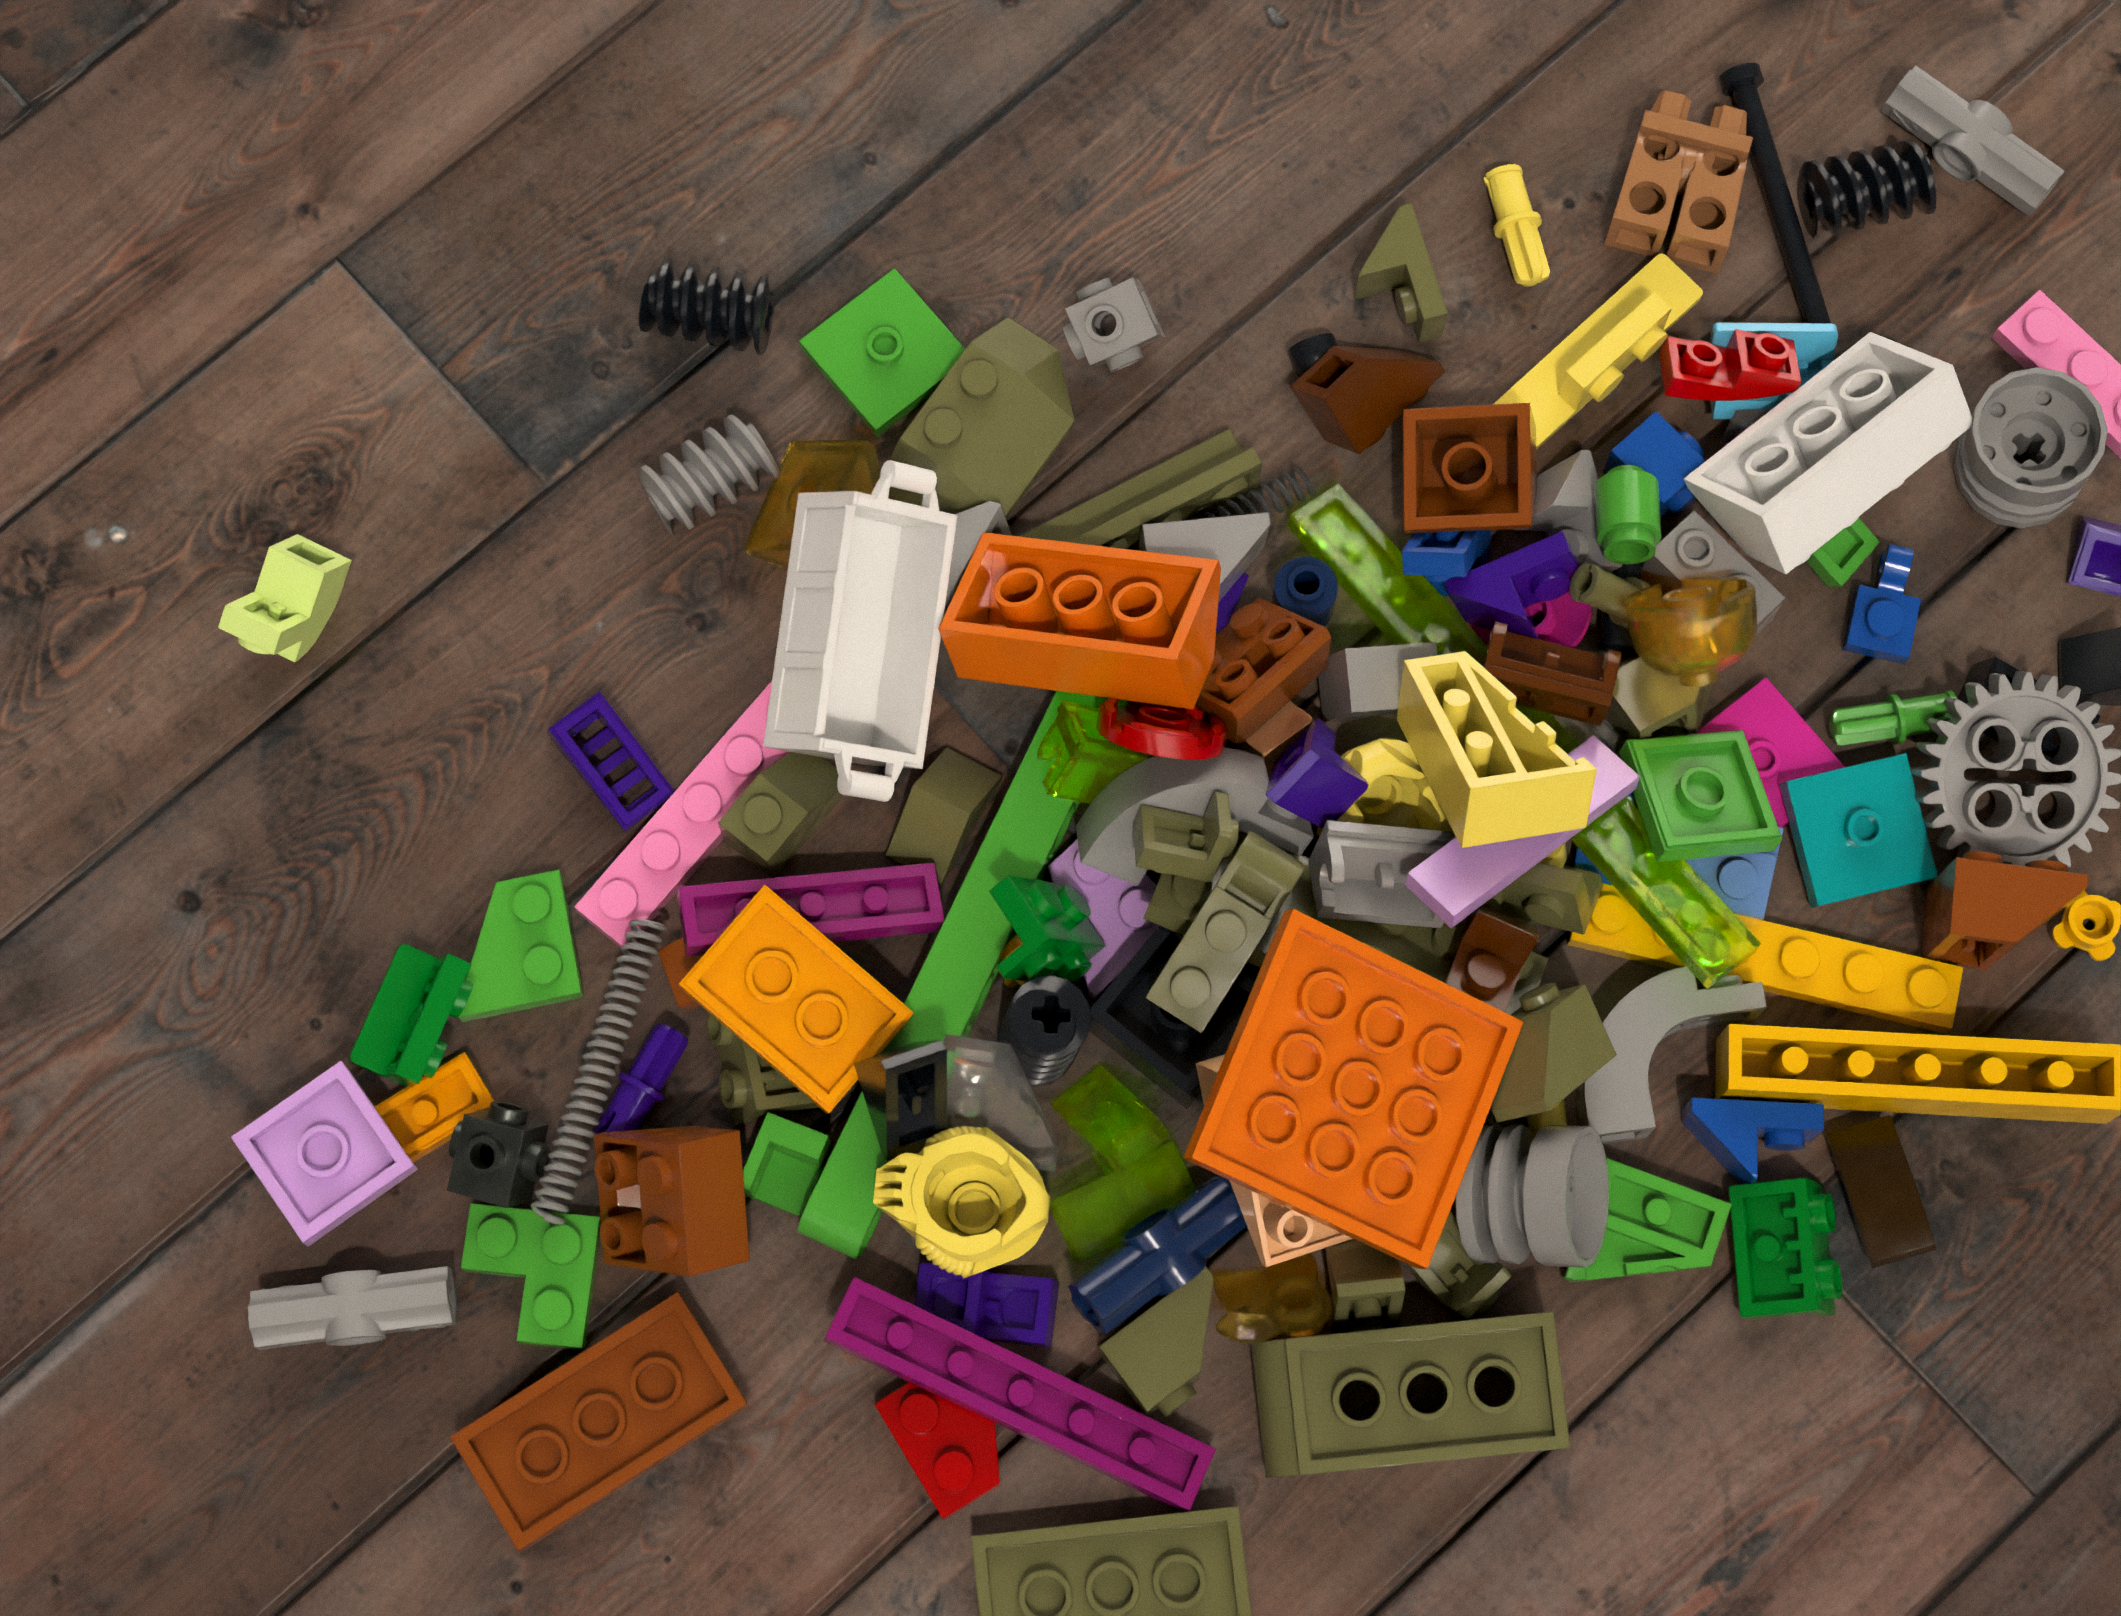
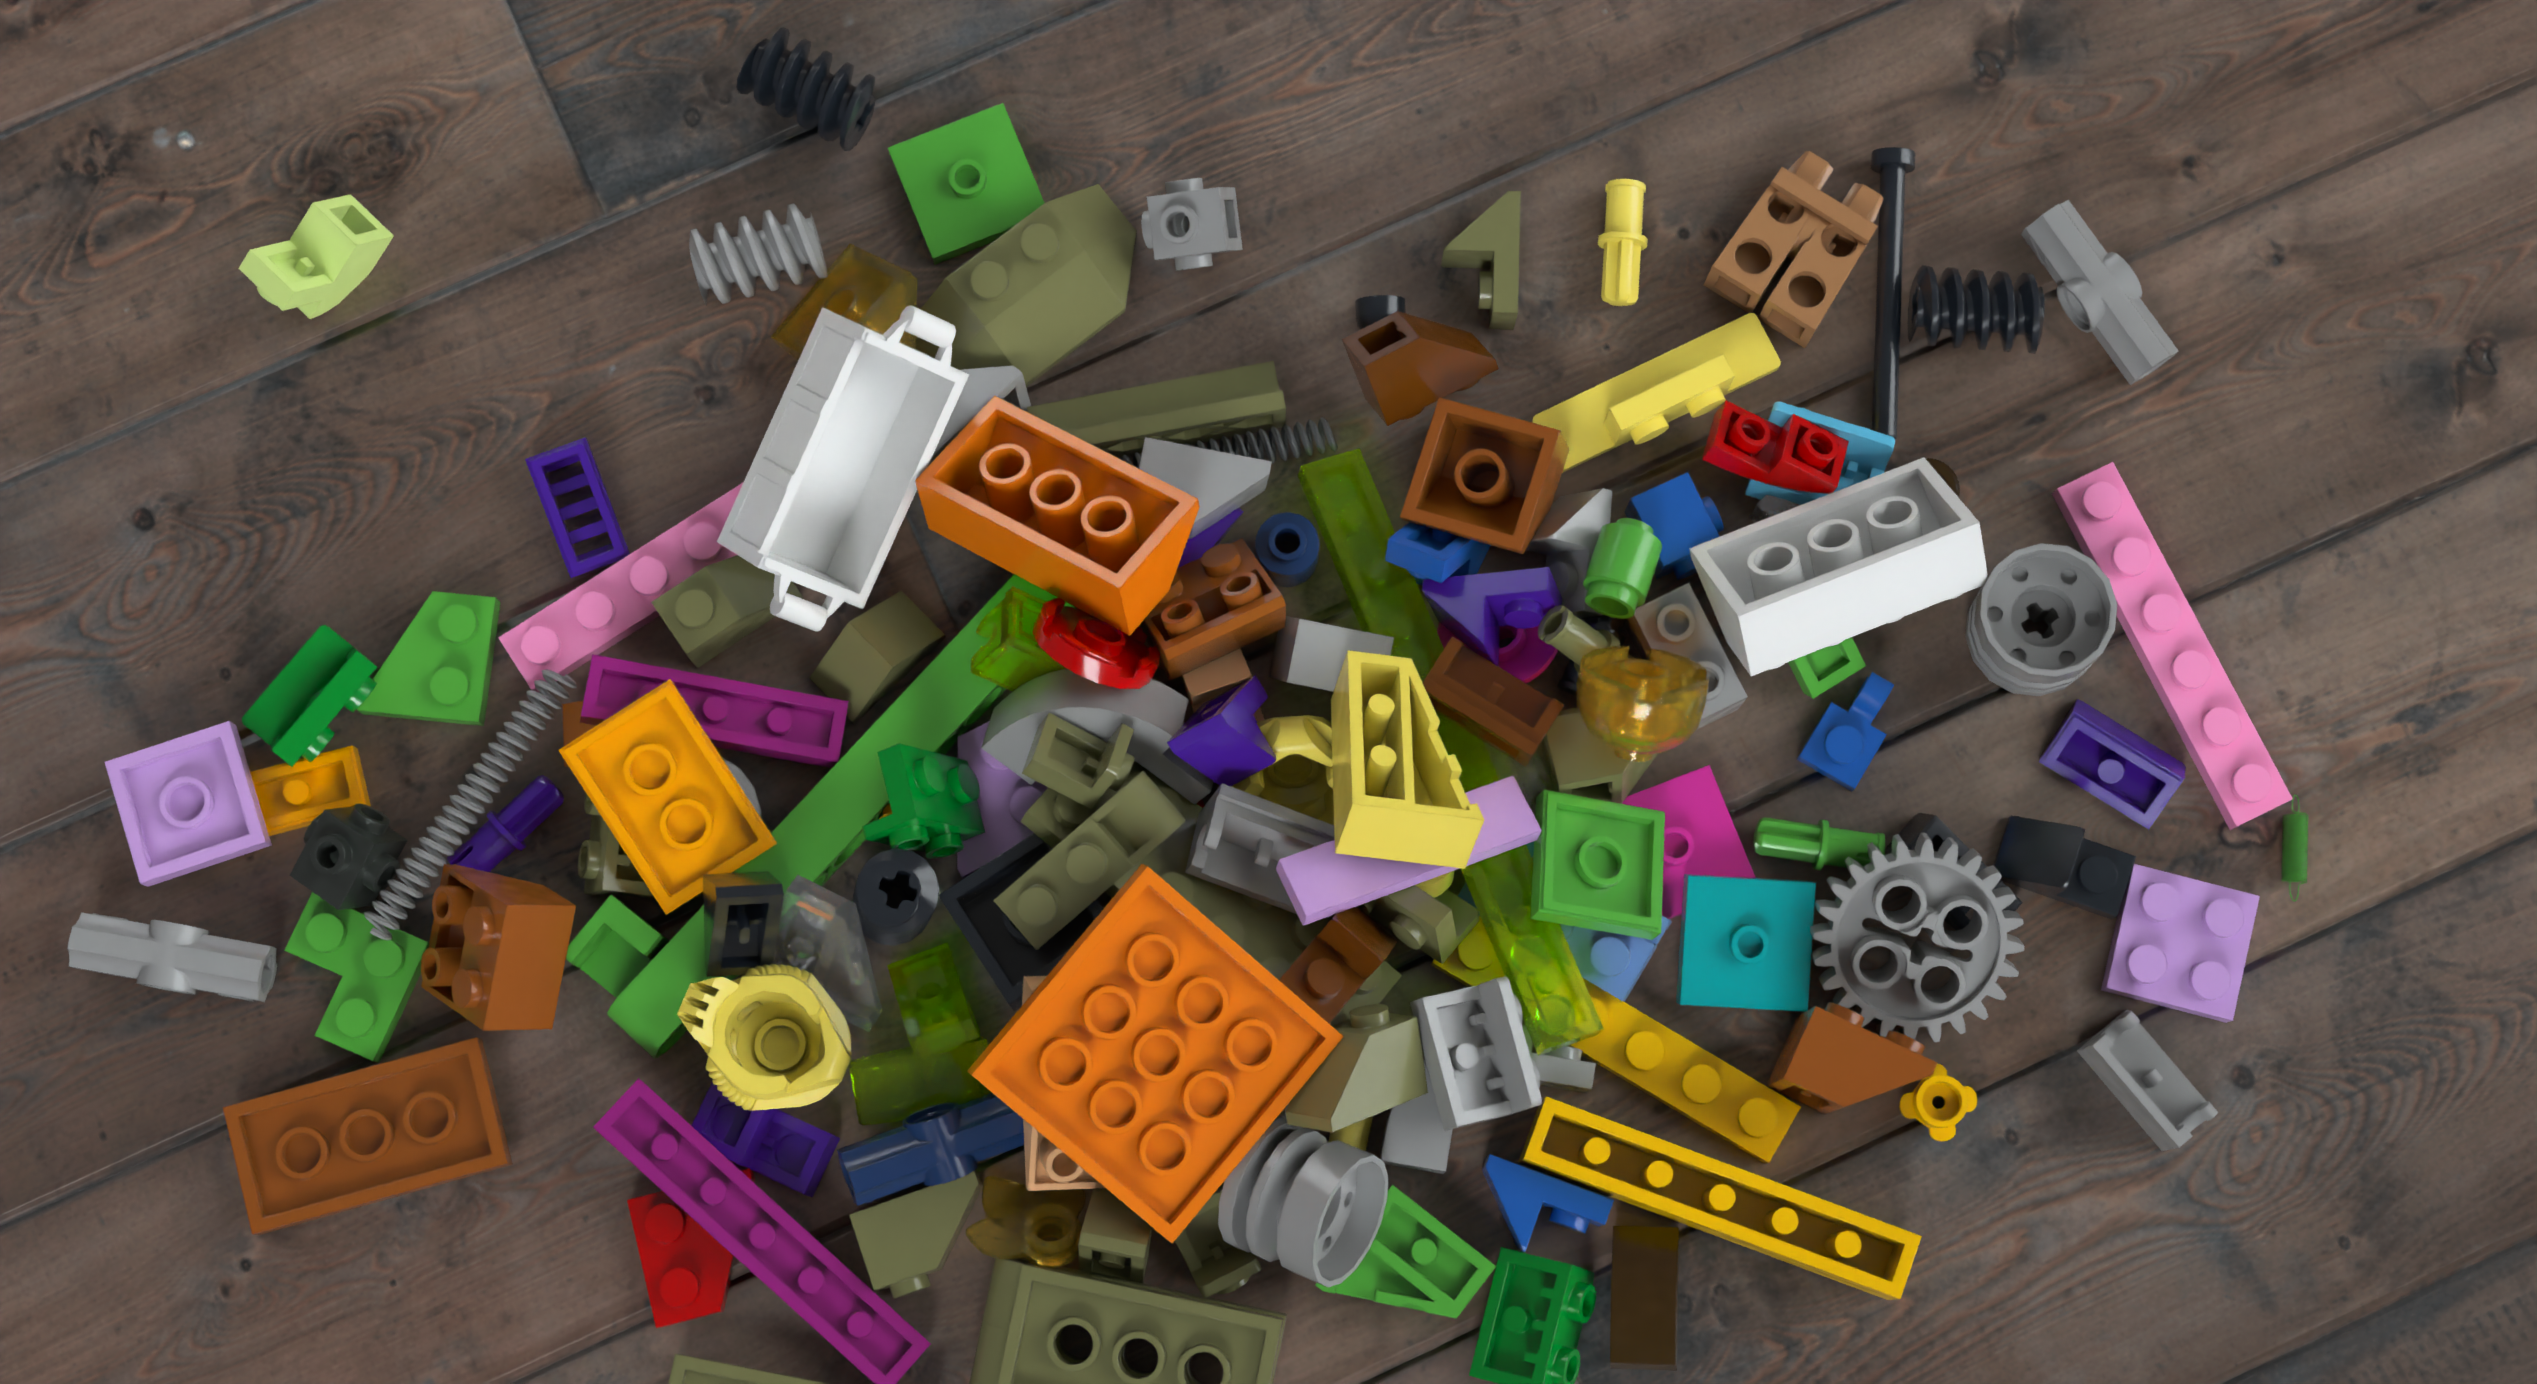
camera: 15 degrees right, 5 degrees up
(1652, 1002) = (1477, 1053): none -> light grey bracket

